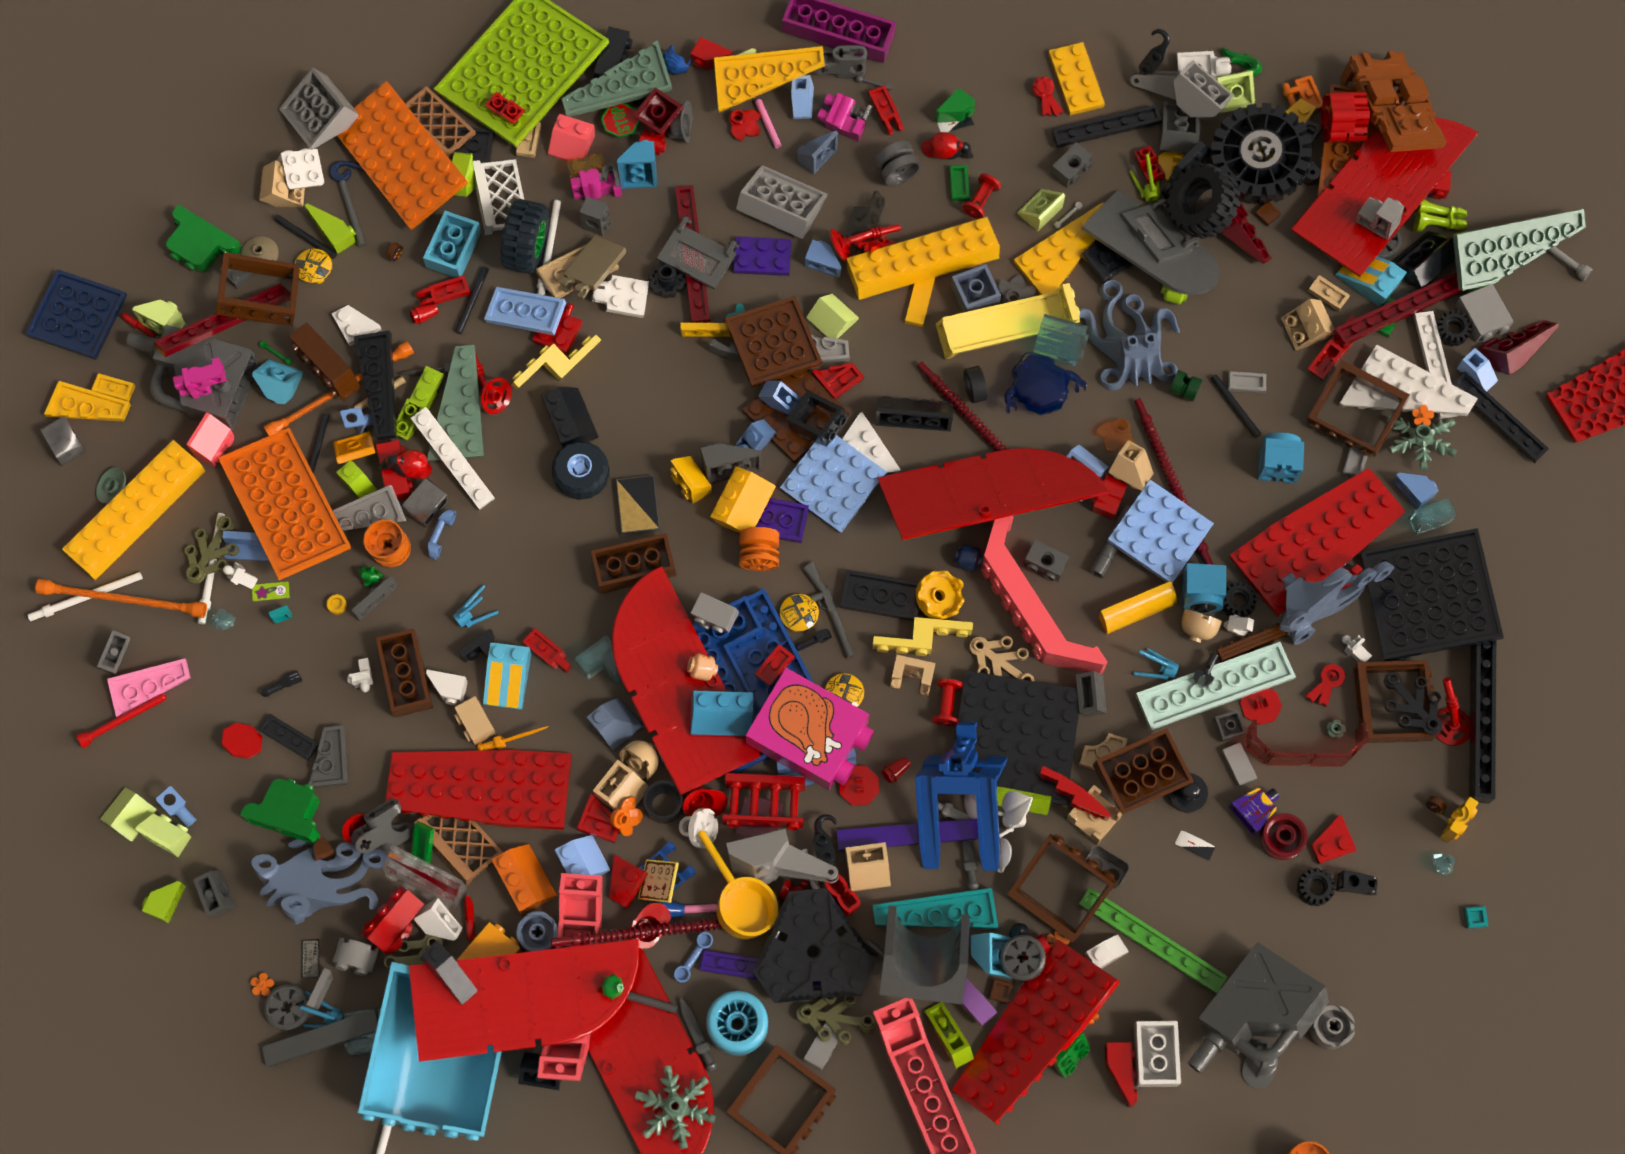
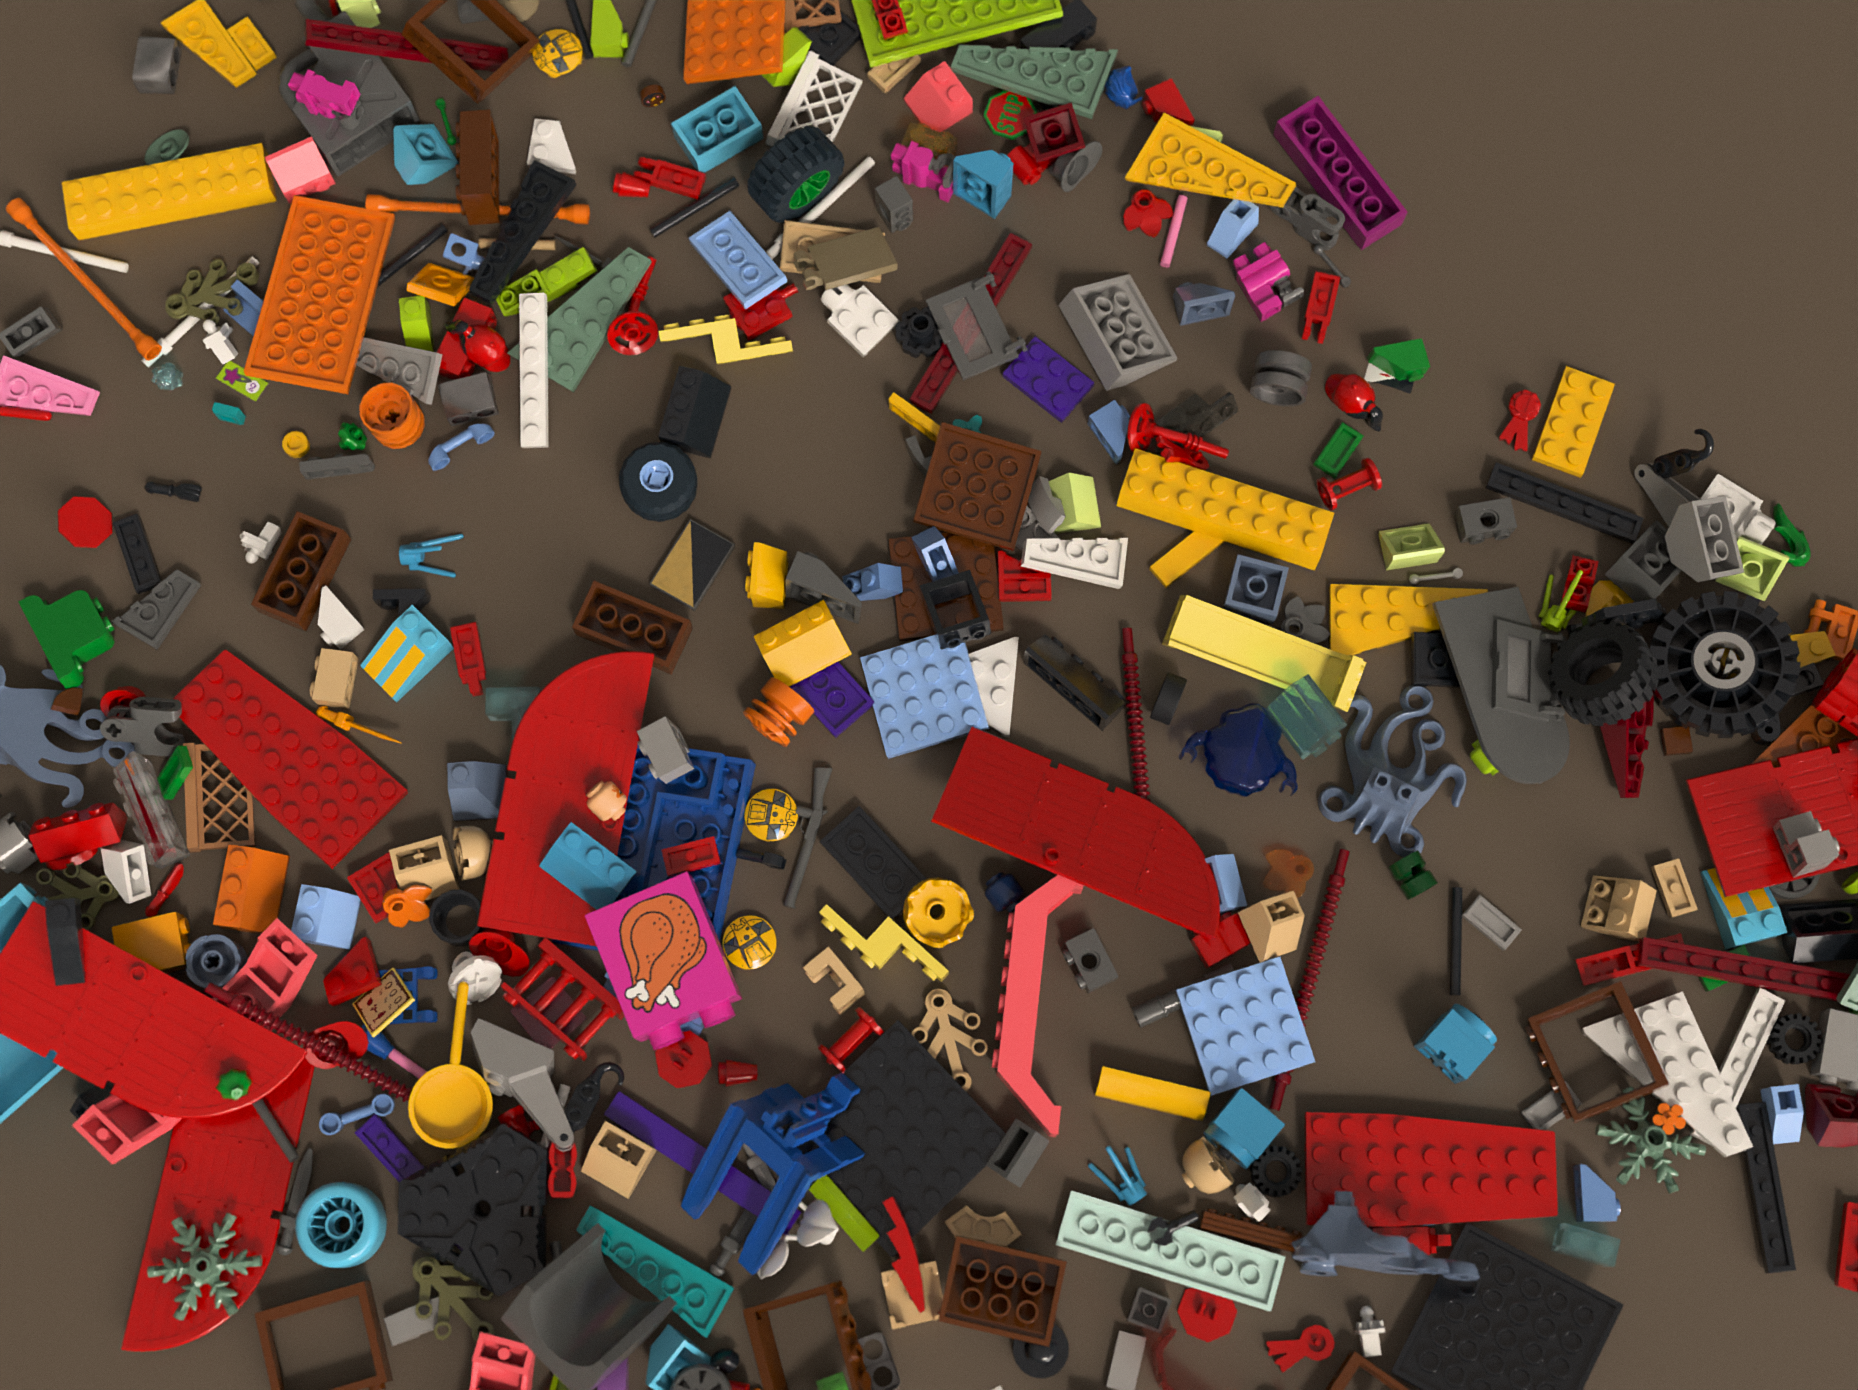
camera: 40 degrees right, 5 degrees up
(821, 326) = (1044, 506): none -> light grey slope
(866, 341) = (1086, 560): none -> white wing

